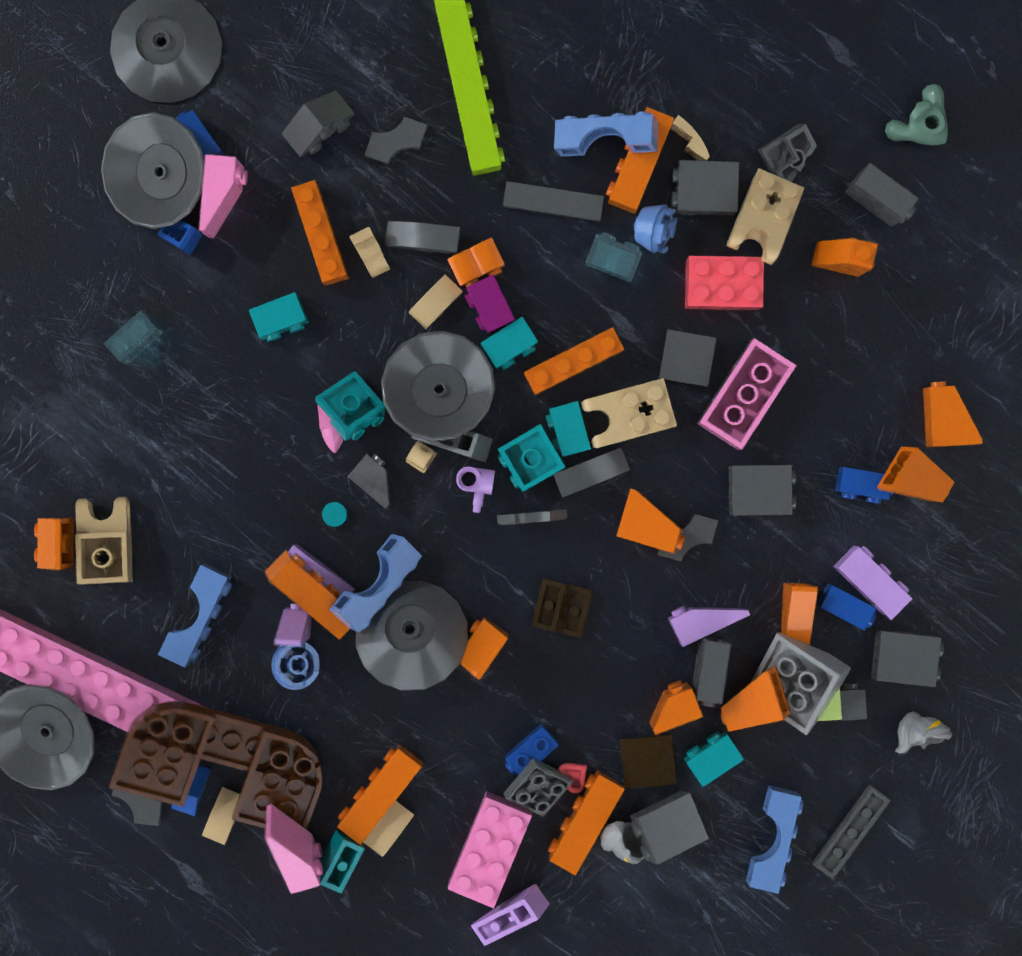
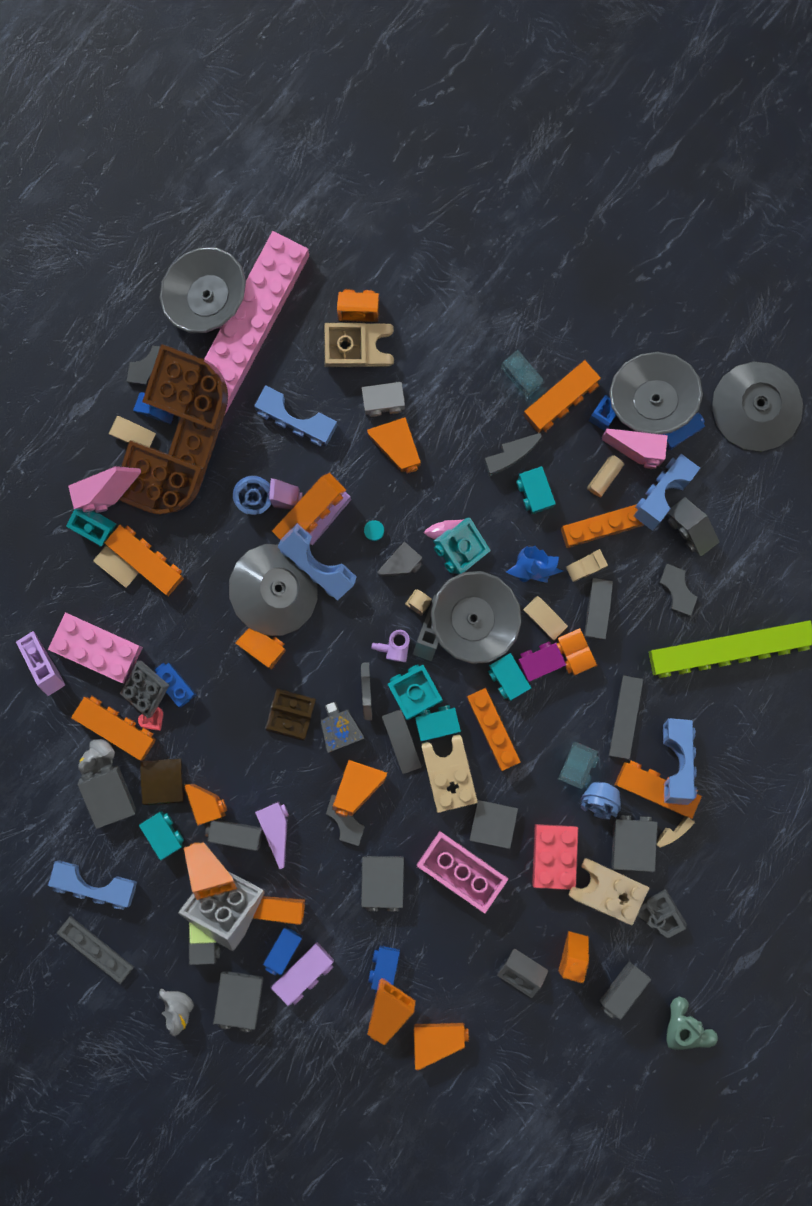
camera: 90 degrees right, 5 degrees down
(161, 288) = (562, 396): none -> orange brick
(170, 507) = (383, 399): none -> light grey brick
(227, 489) = (397, 444): none -> orange slope
(234, 348) = (511, 454): none -> dark grey slope
(258, 232) = (605, 476): none -> tan brick
(296, 168) = (655, 507): none -> medium blue arch
(371, 316) = (534, 565): none -> blue hair
(578, 548) = (339, 728): none -> torso
(863, 317) = (523, 973): none -> dark grey panel

